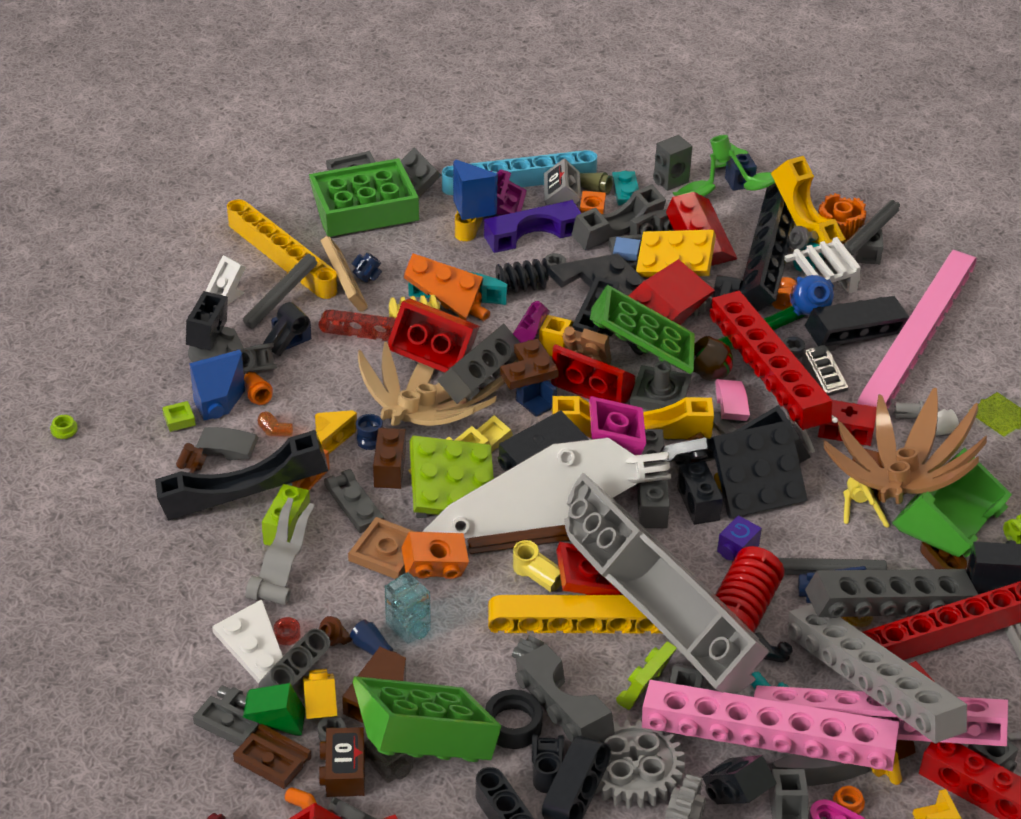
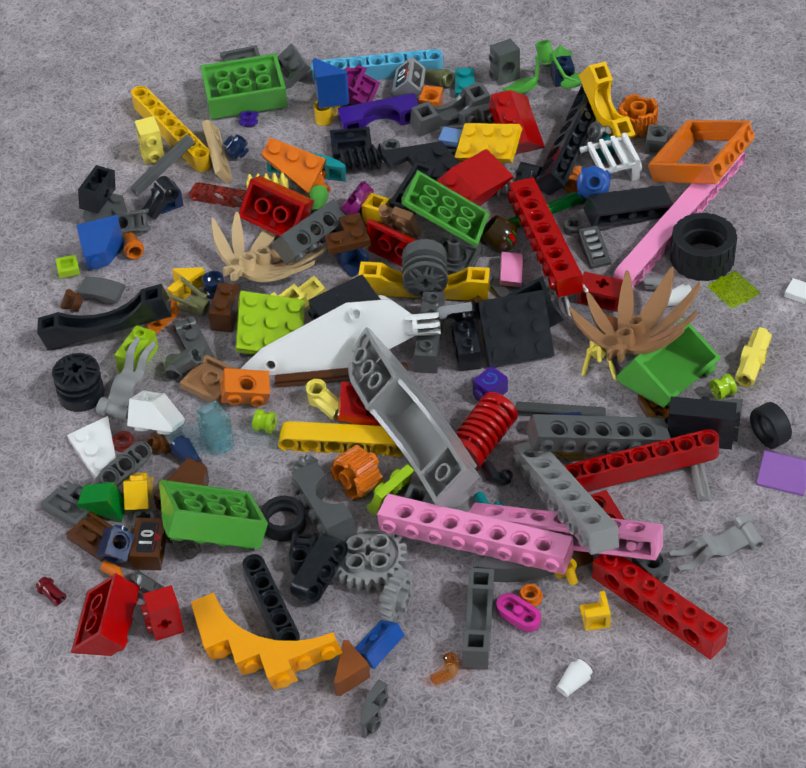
camera: 10 degrees right, 5 degrees up
(218, 558) = (78, 382): none -> black wheel
(226, 279) = (120, 156): white slope -> none
(260, 262) = (149, 140): none -> light yellow brick
(272, 427) = (140, 278): clear orange arm -> none
(293, 771) = (108, 551): none -> dark blue brick
(324, 591) = (153, 412): none -> white slope
(342, 531) = (181, 363): none -> dark grey piece
(353, 455) = (197, 304): none -> olive plant
(374, 235) = (248, 118): none -> dark purple plate
(465, 596) = (264, 421): none -> lime wheel
(481, 318) = (320, 195): none -> bright green cone
(502, 253) = (349, 138): none -> black plate
(599, 654) = (356, 472): none -> orange brick
(619, 423) = (402, 287): dark pink slope -> none
(640, 388) = (424, 267): none -> dark grey wheel
(738, 780) = (442, 574): black brick -> none
(872, 226) = (658, 124): dark grey axle -> none
(886, 277) = (665, 166): none -> orange window
(955, 383) = (703, 263): none -> black tyre

